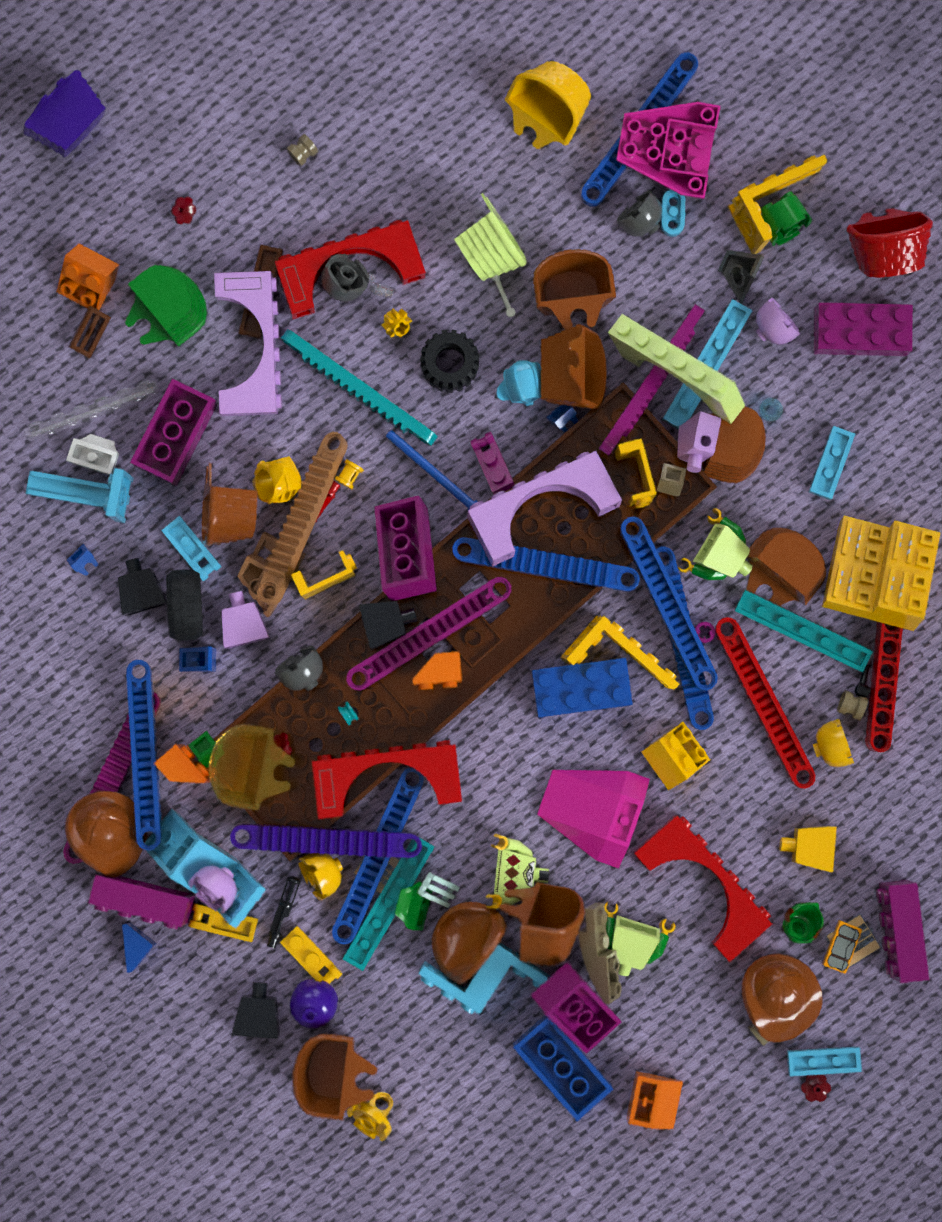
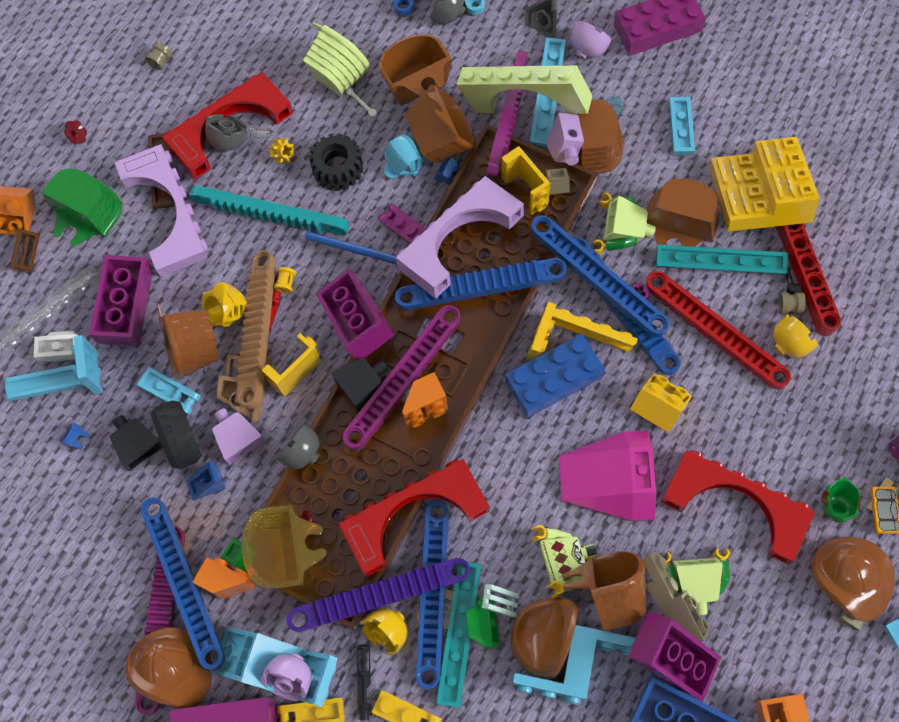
camera: 15 degrees left, 15 degrees down
(348, 713) = (356, 471): teal bush -> none
(812, 847) = (816, 433): yellow torso -> none

